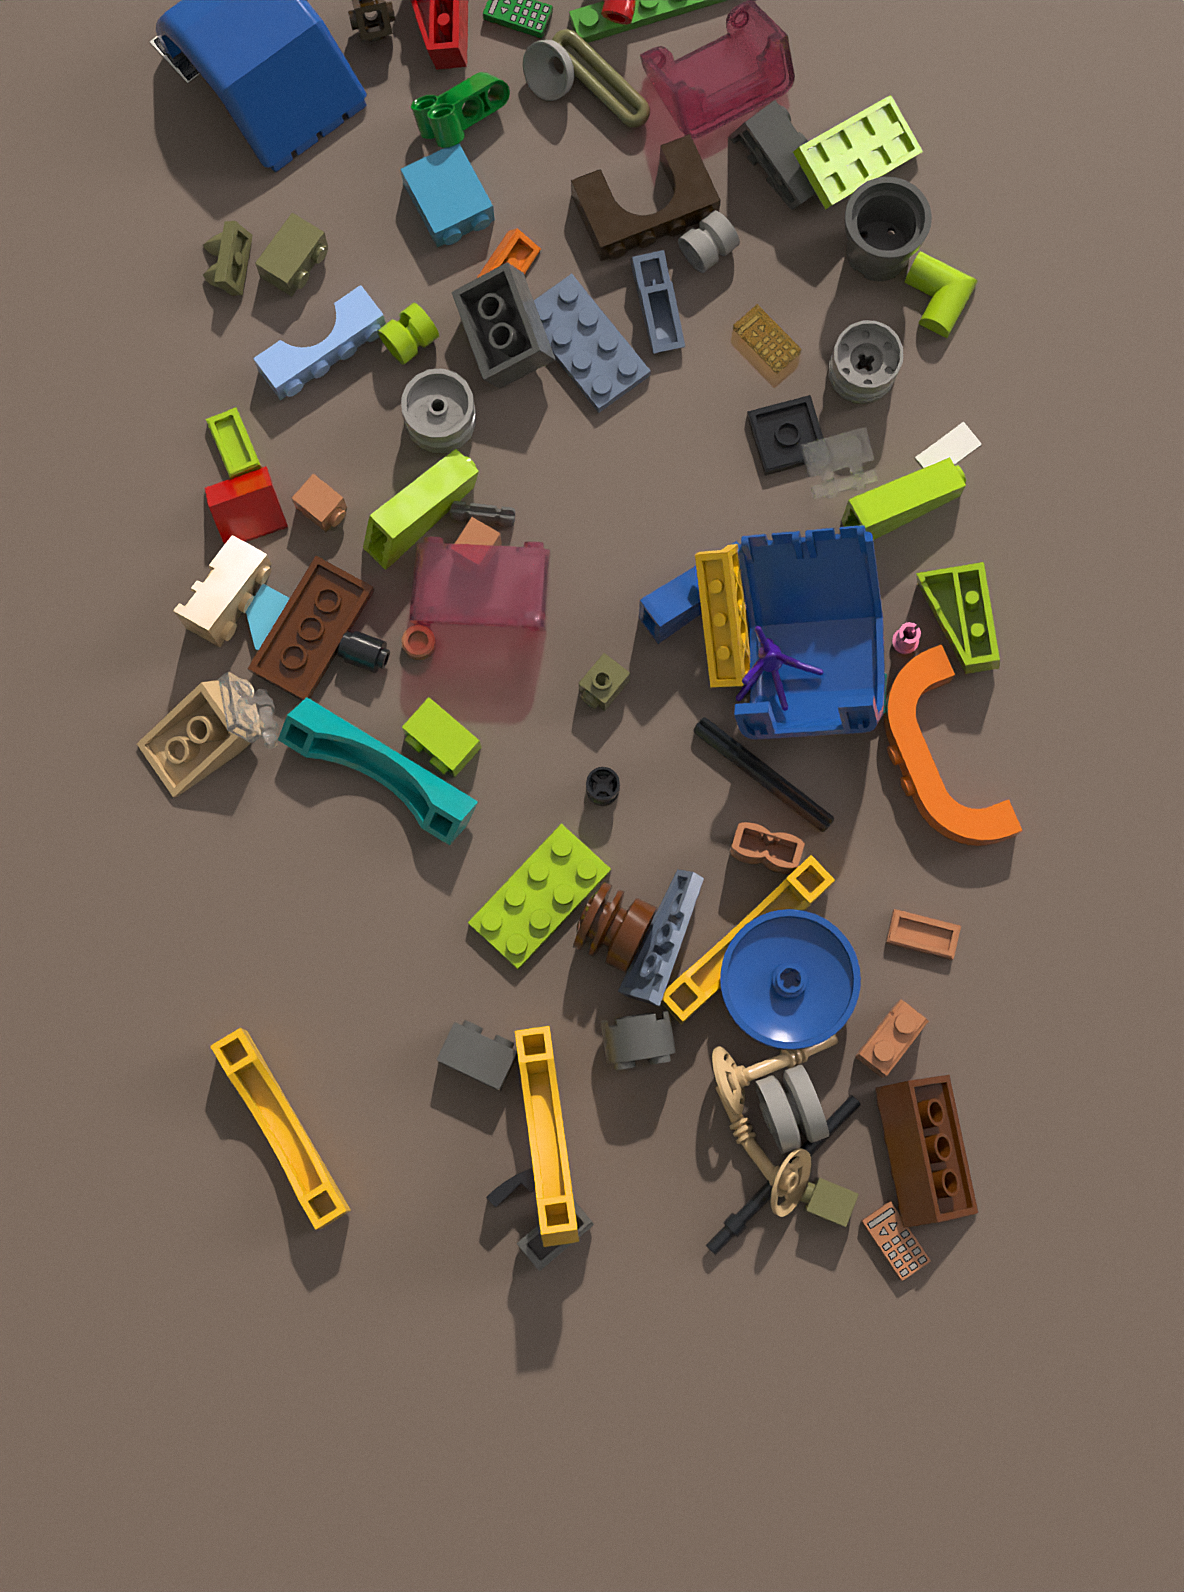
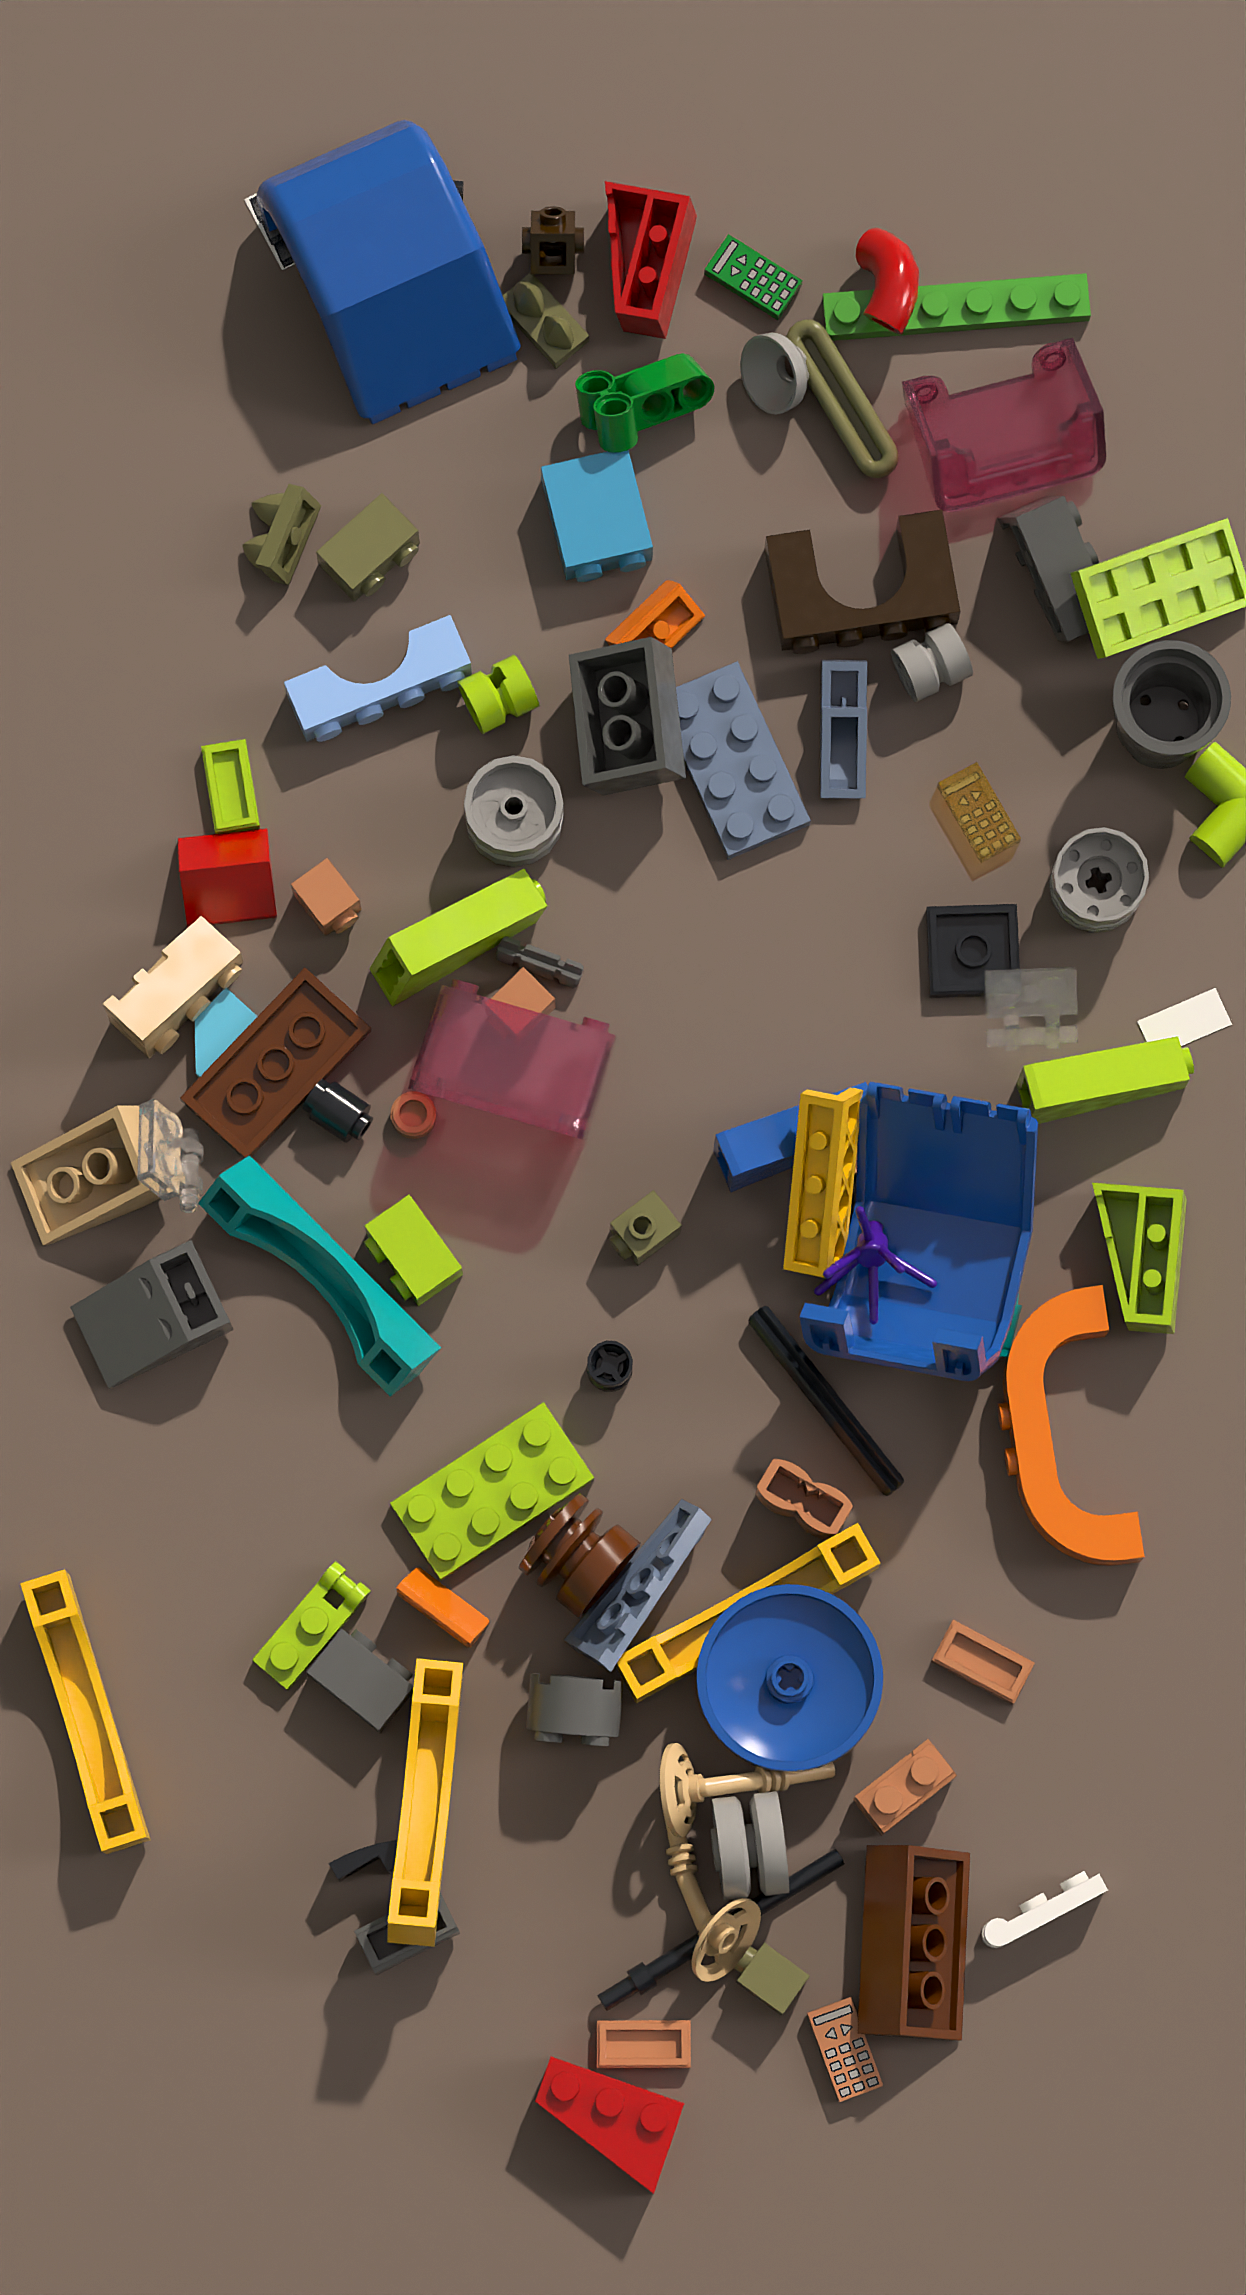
camera: 10 degrees right, 0 degrees up
(263, 828) = (151, 1315): none -> dark grey slope
(380, 74) = (544, 320): none -> olive tile
(431, 1026) = (310, 1627): none -> lime plate
(524, 988) = (442, 1606): none -> orange slope
(740, 1333) = (613, 2117): none -> red wedge
(748, 1273) = (644, 2044): none -> nougat tile
(908, 645) = (1056, 1275): bright pink pin -> none
(1012, 1105) = (1041, 1911): none -> white plate

